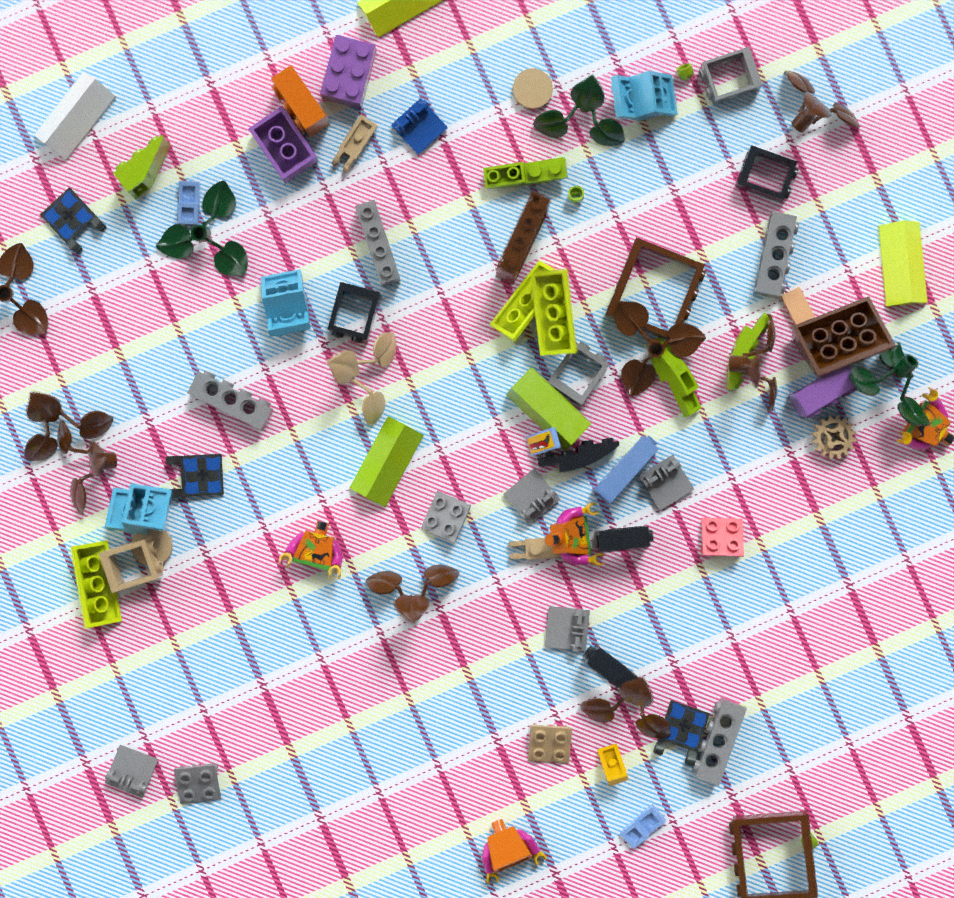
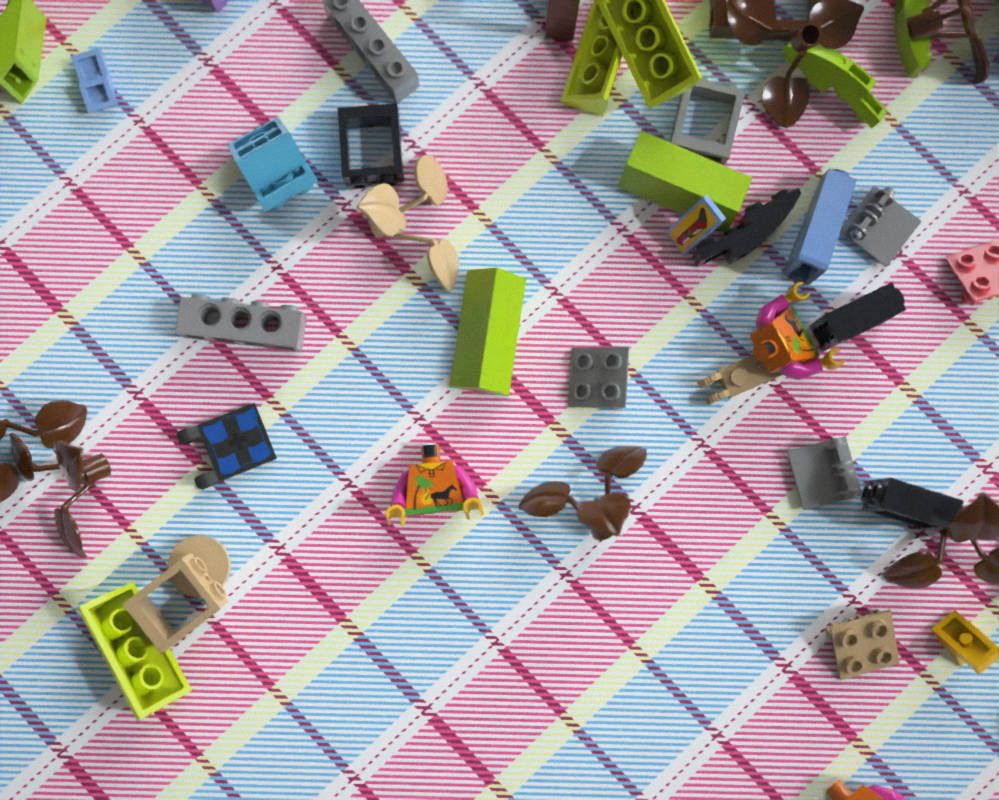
camera: 20 degrees left, 5 degrees down
(138, 509) = (160, 518): medium azure bracket -> none
(177, 238) = (96, 136): dark green plant -> none
(531, 496) = (705, 309): light grey hinge -> none

